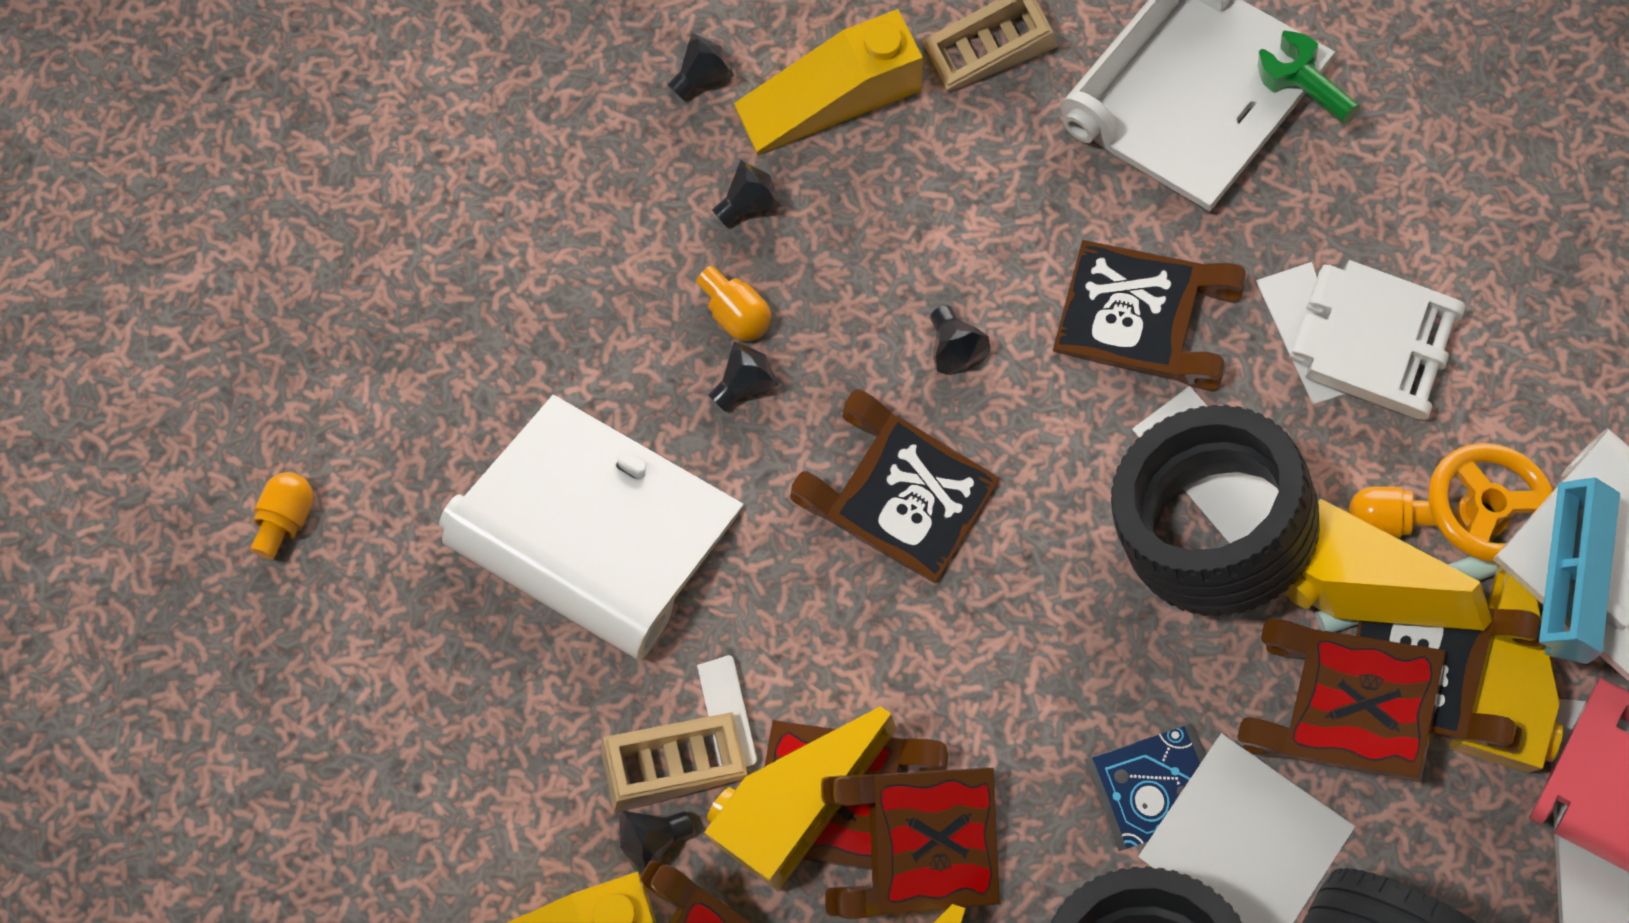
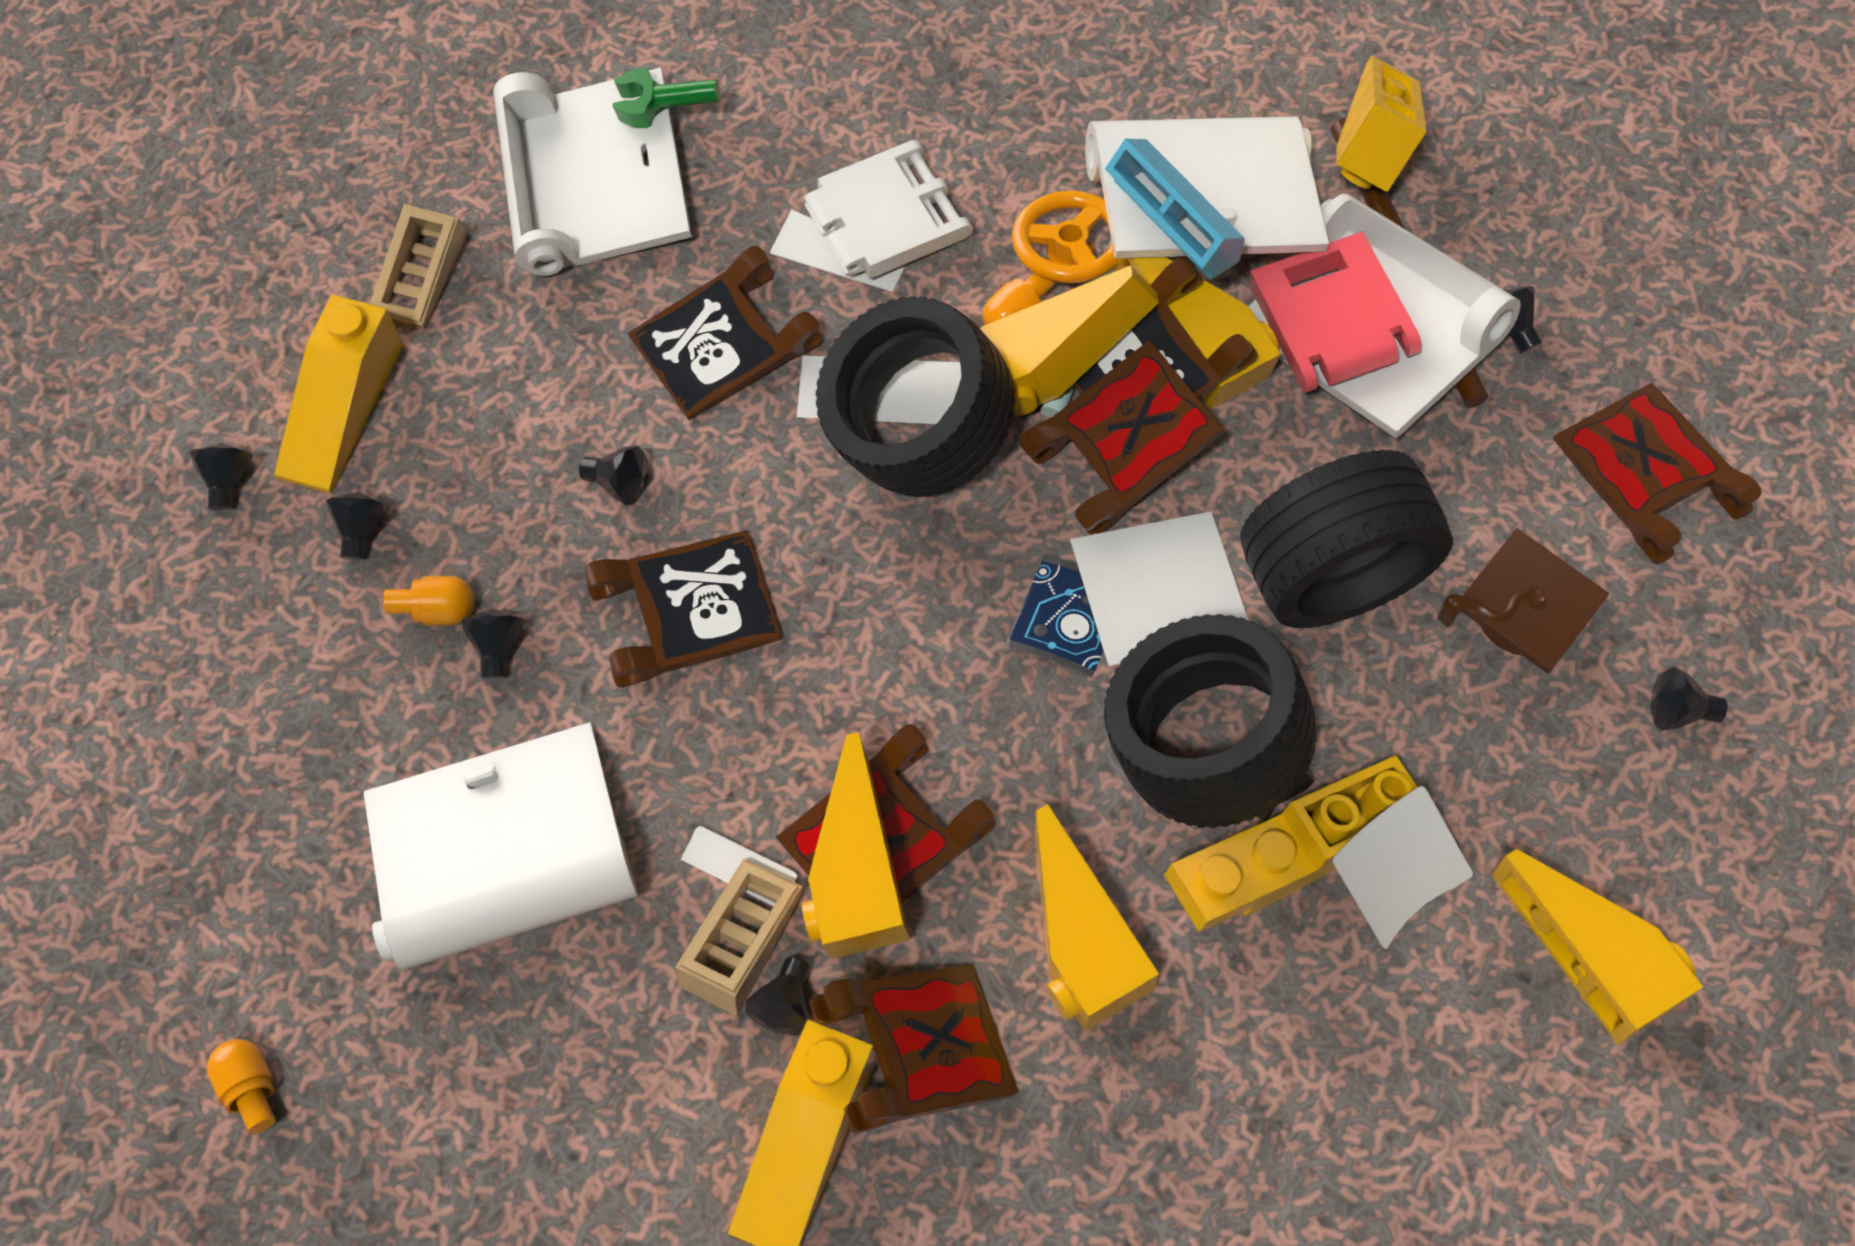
camera: 50 degrees left, 5 degrees down
(927, 841) = (972, 792): flag -> none

